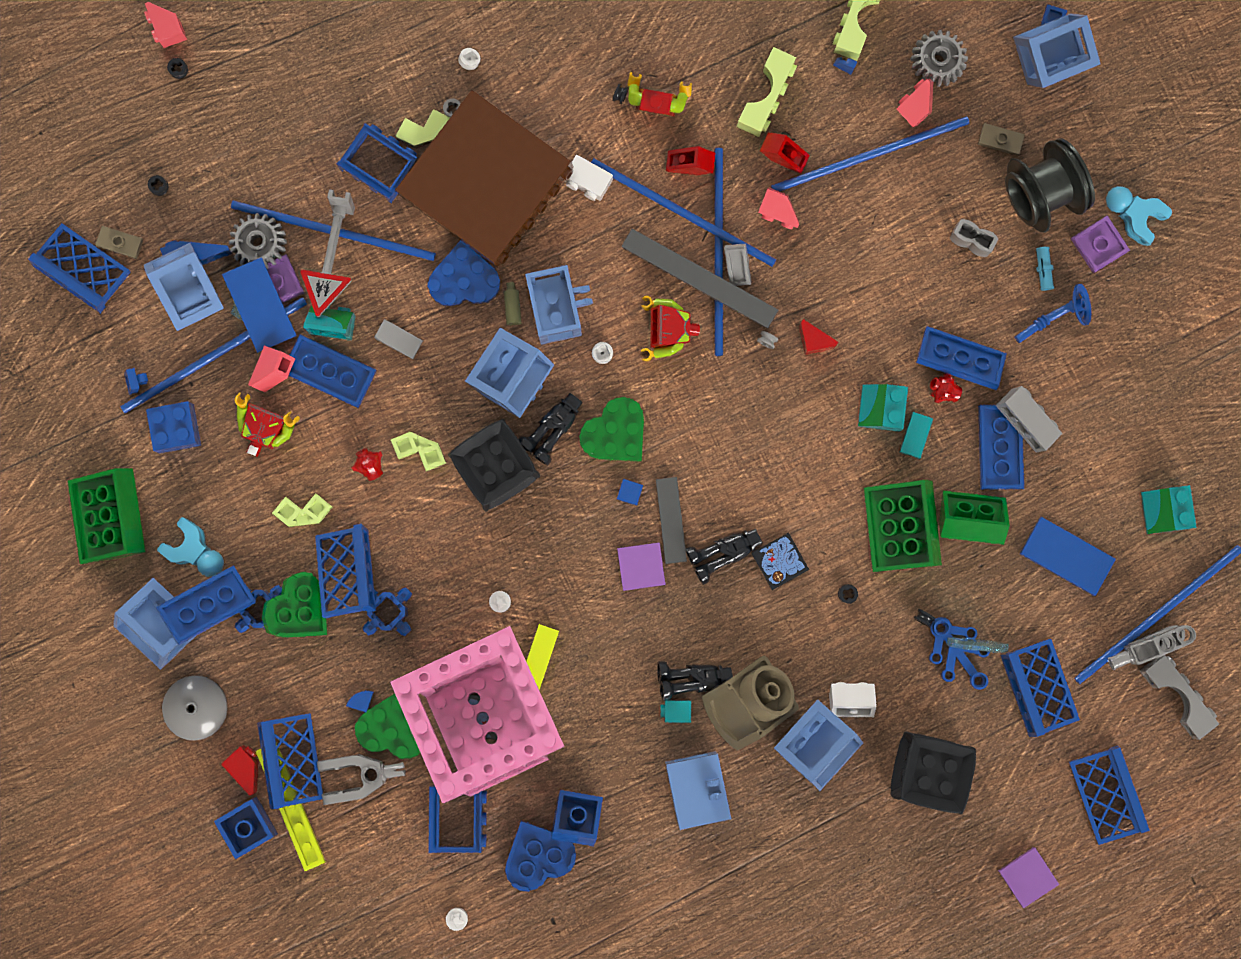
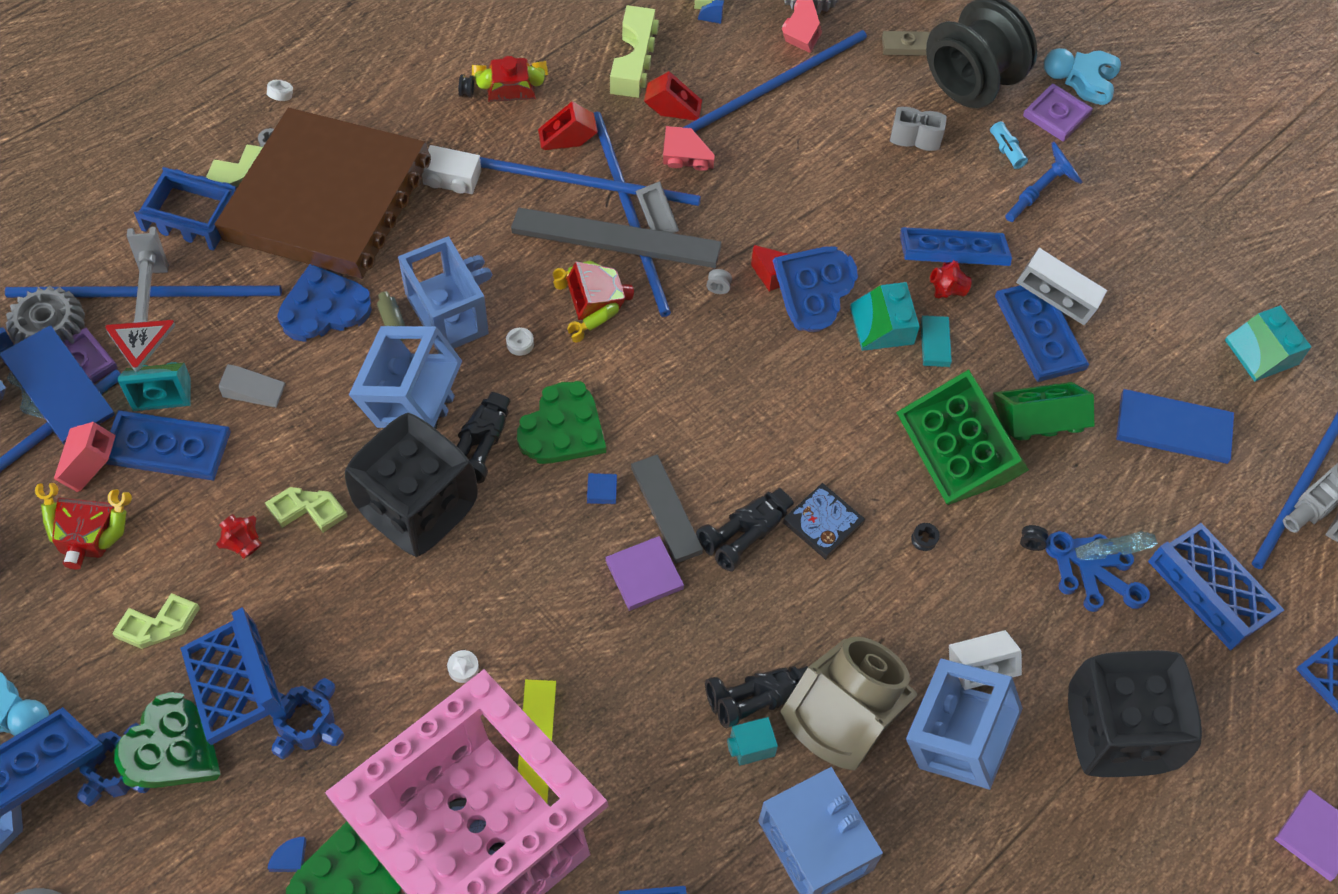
camera: 15 degrees left, 25 degrees down
(838, 366) = (814, 284): none -> blue plate

